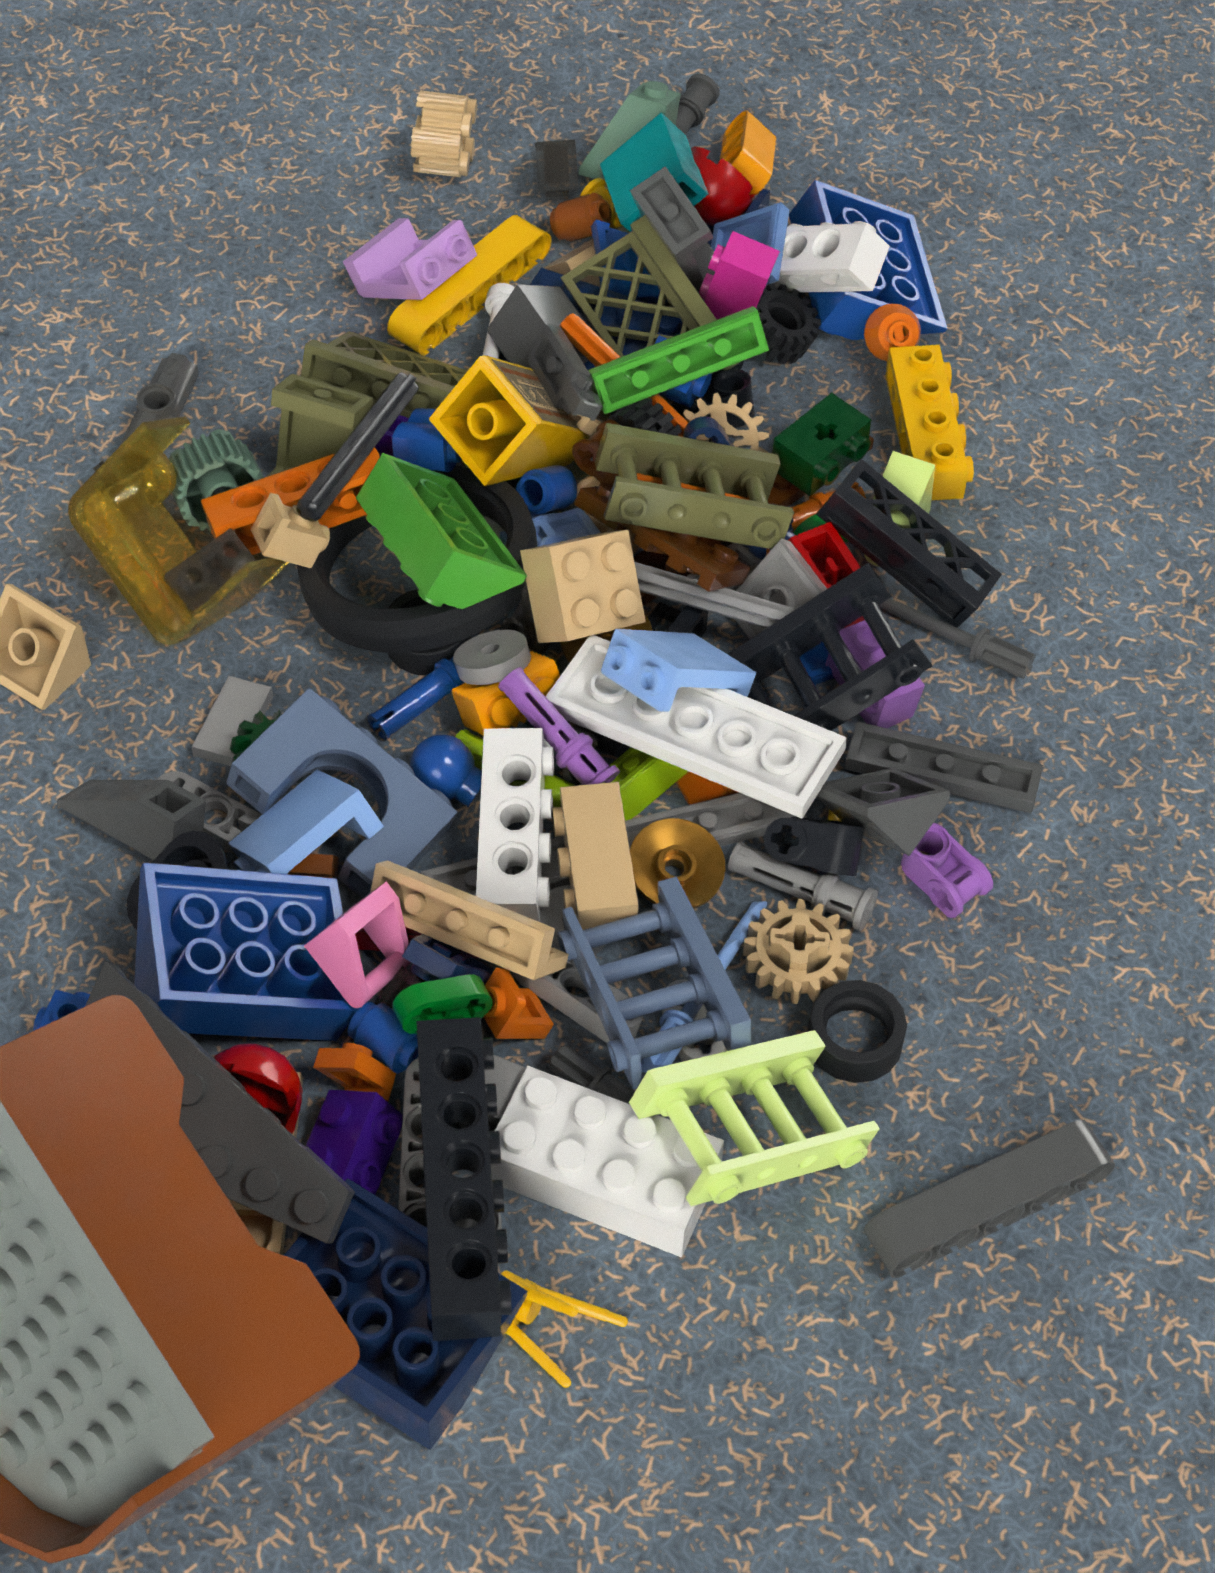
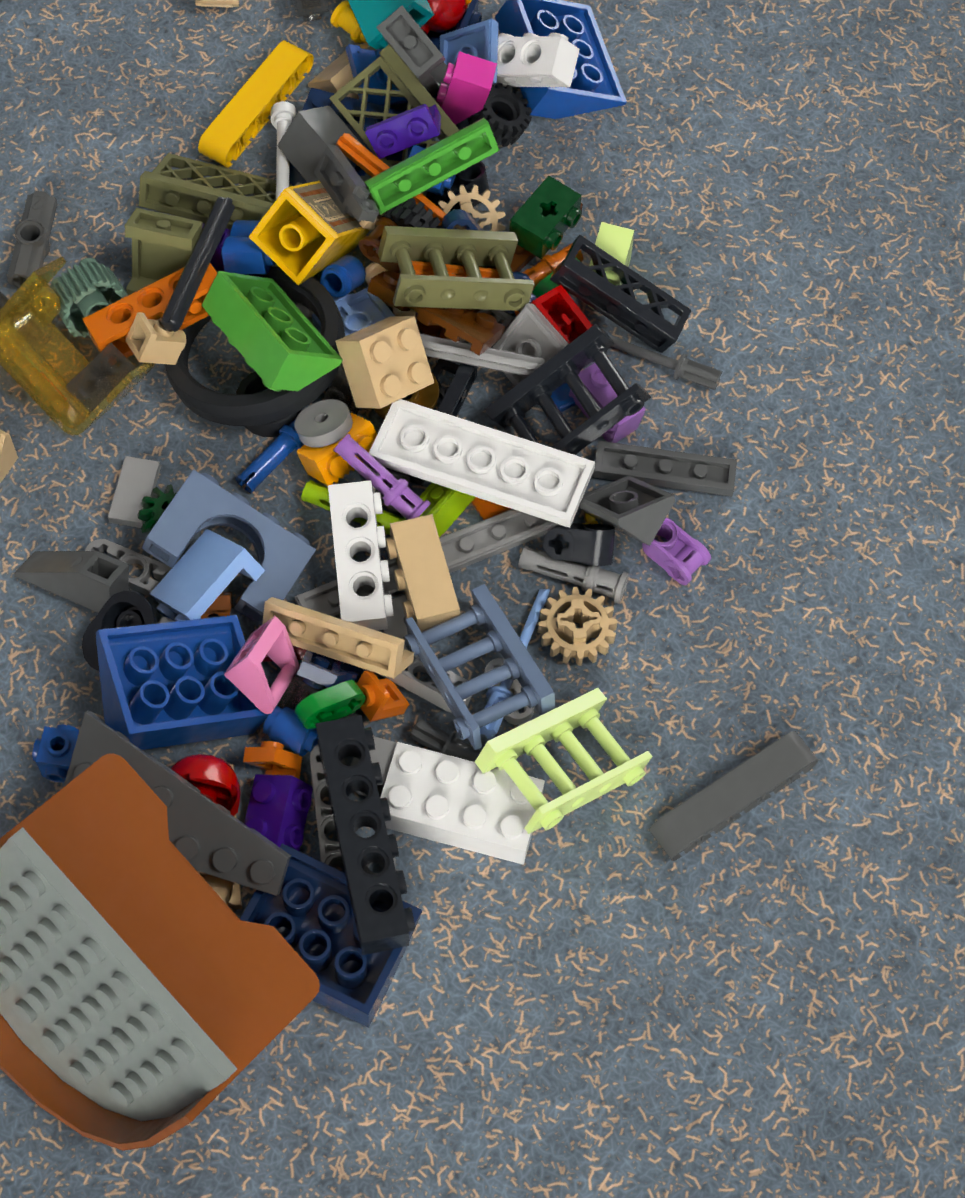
camera: 10 degrees left, 10 degrees up
(408, 268) = (204, 93): lavender panel -> none
(447, 766) = (302, 514): blue piece -> none
(540, 1296) = (438, 911): yellow plant -> none
(574, 217) = (334, 36): dark orange brick -> none
(649, 315) = (404, 130): none -> dark purple bracket
(661, 662) = (457, 415): light blue panel -> none
(679, 845) = (485, 554): pearl gold dish -> none
(864, 997) = (632, 656): black tyre -> none
(891, 327) = (586, 113): orange cone -> none
(928, 416) = (621, 182): yellow brick -> none

